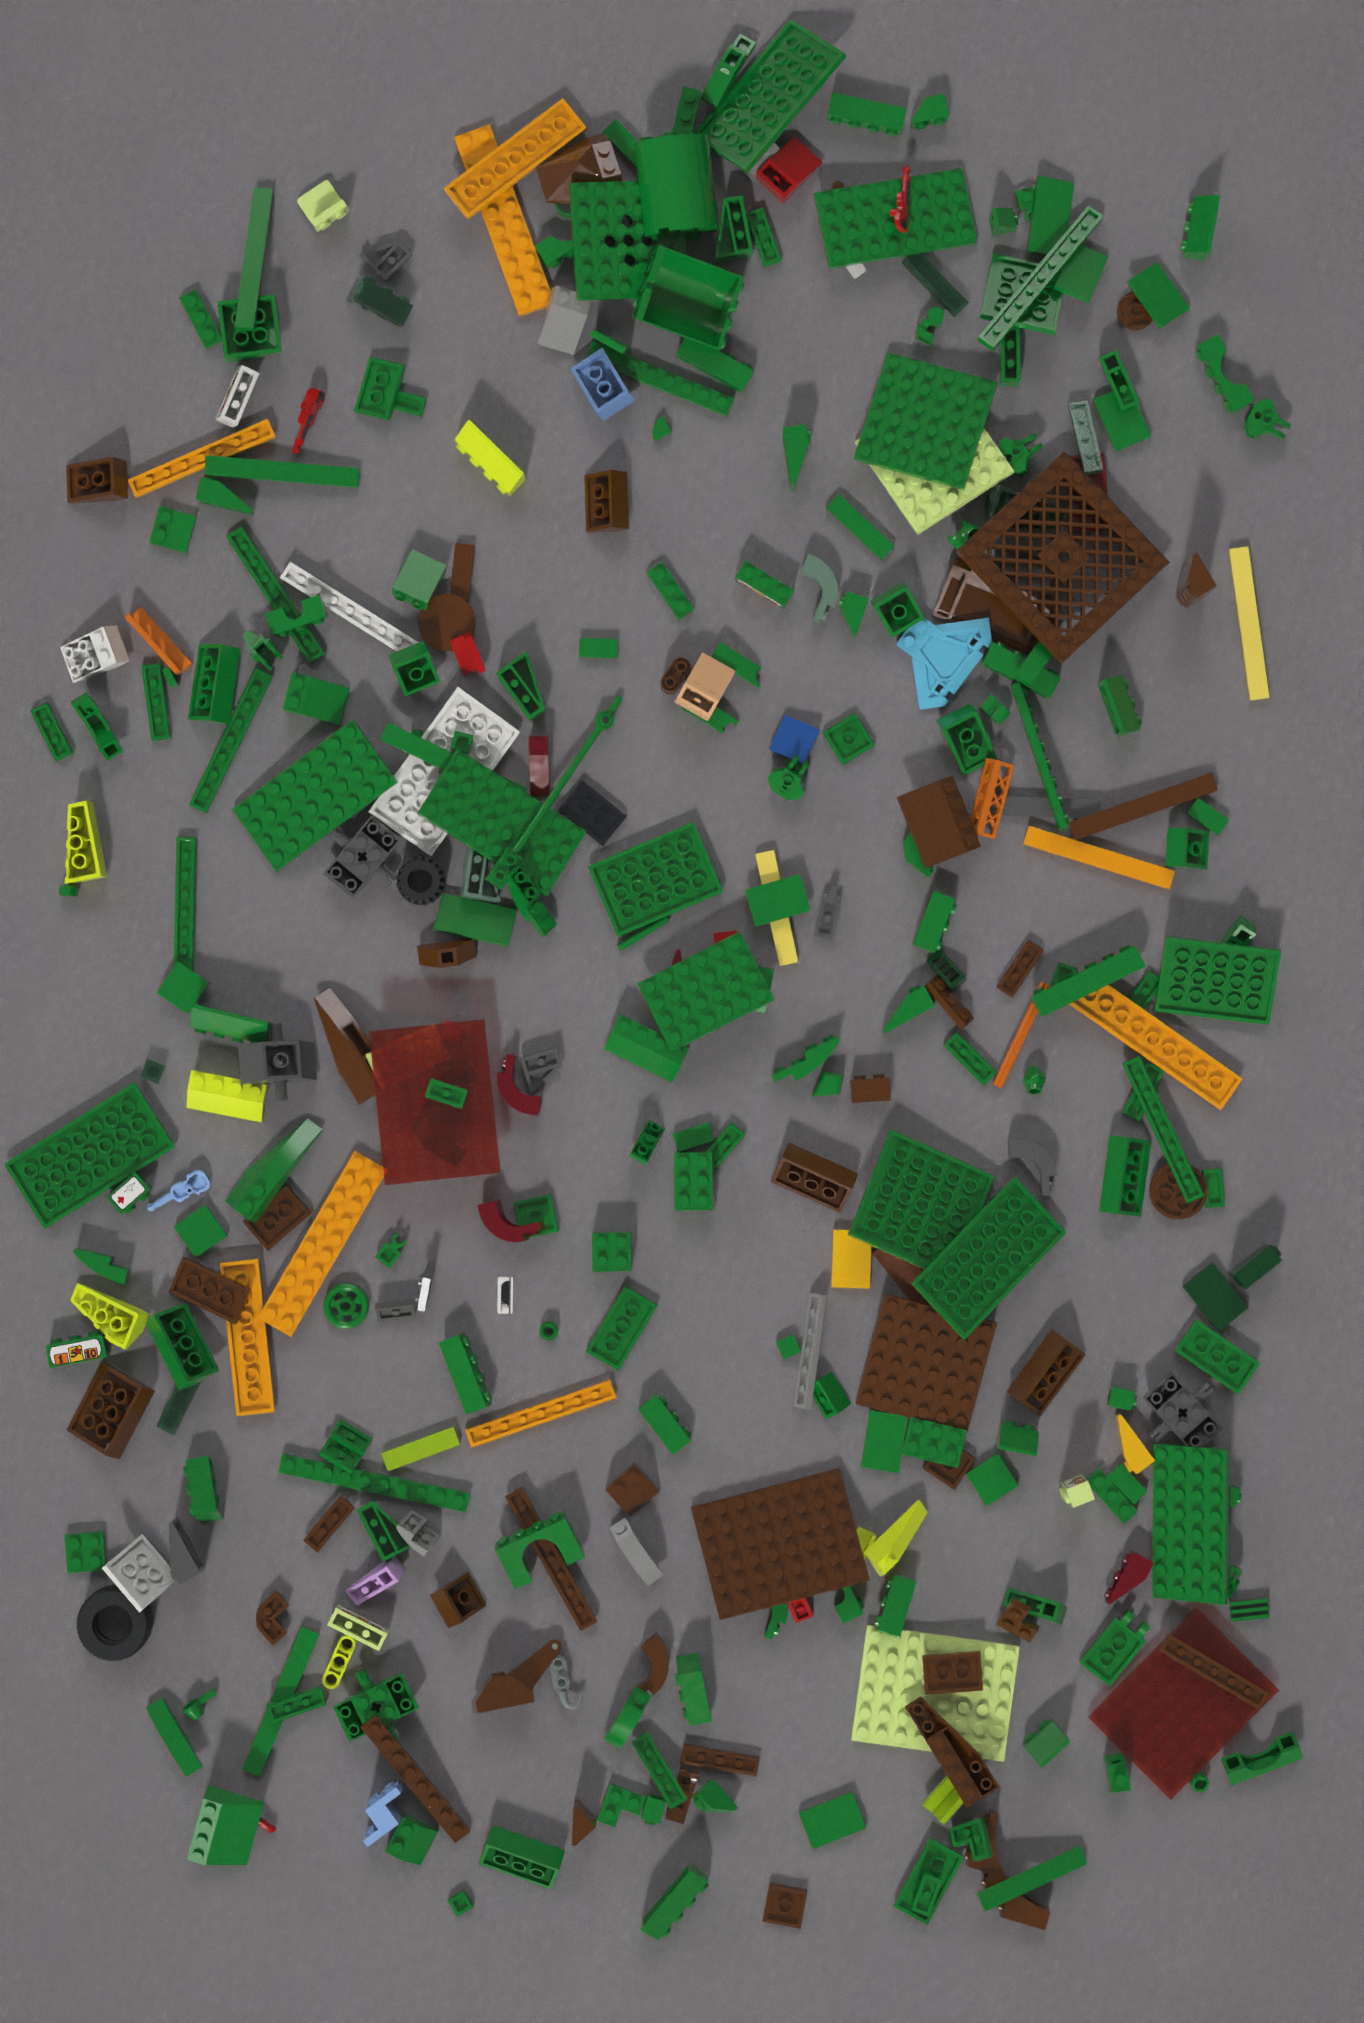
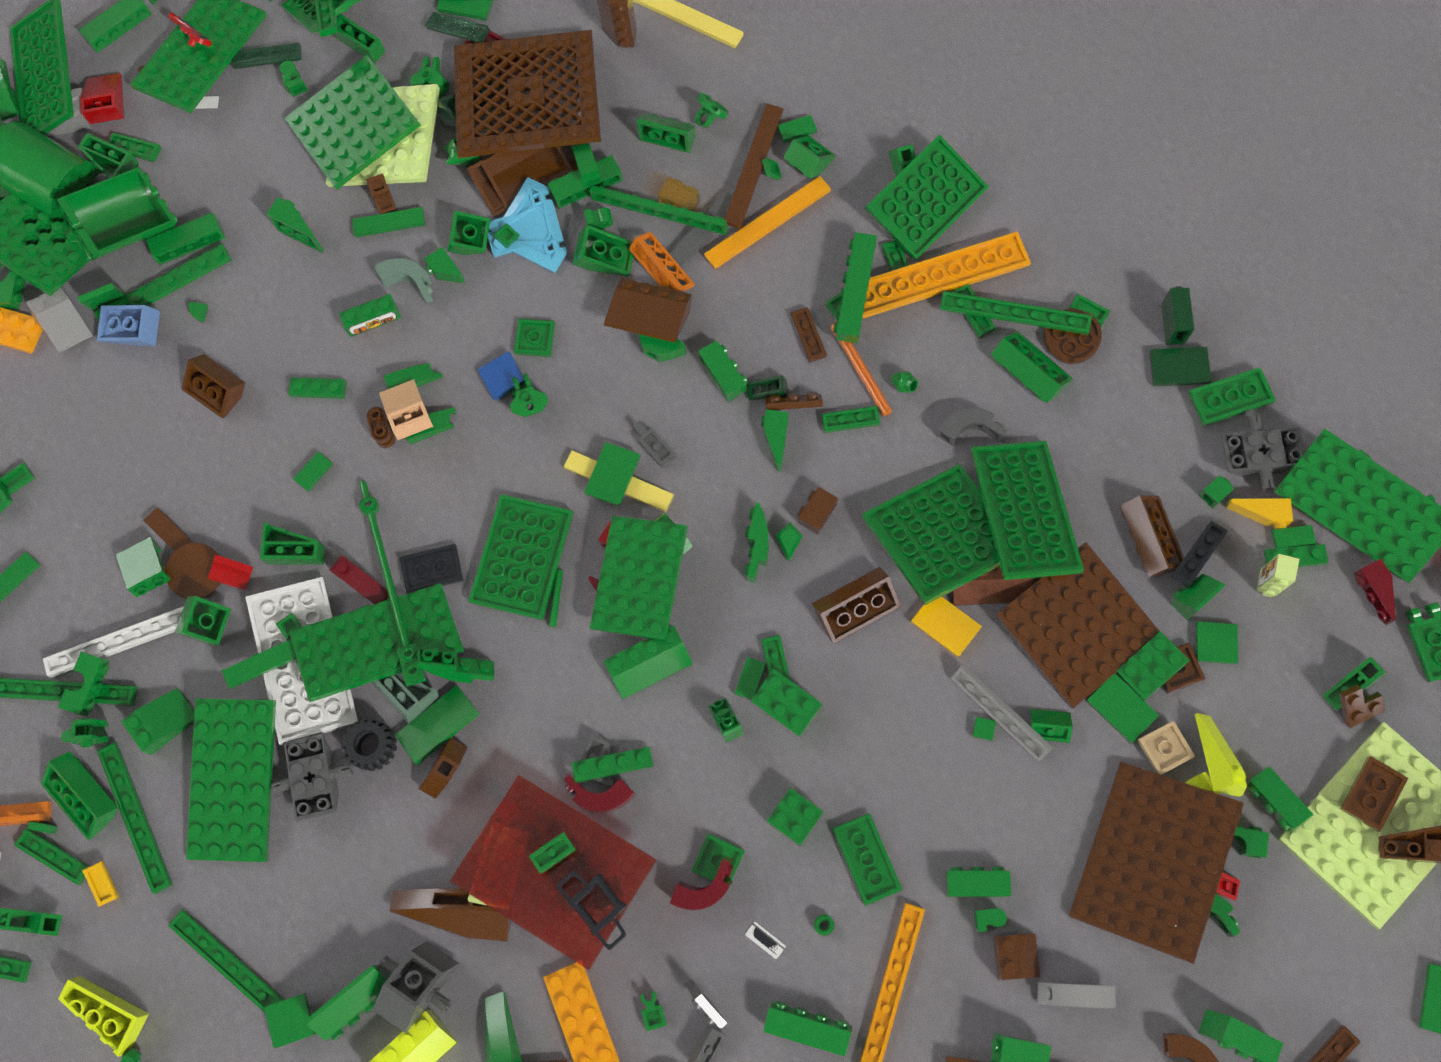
camera: 50 degrees left, 15 degrees down
(166, 758) = (101, 883): none -> yellow tile
(423, 1139) = (597, 881): none -> black bar
(489, 458) = (104, 445): neon yellow slope -> none
(546, 1081) = (611, 764): none -> green plate
(648, 1452) = (992, 917): none -> green leg
(875, 1495) = (1166, 748): none -> tan plate
(878, 503) = (381, 194): none -> reddish brown slope
(919, 644) = (506, 235): none -> green tile
(1055, 1418) = (1199, 554): none -> black plate
(1065, 763) = (678, 194): none -> clear yellow brick
(1150, 824) = (772, 169): none -> green tile
(1171, 729) = (711, 109): none -> green tile

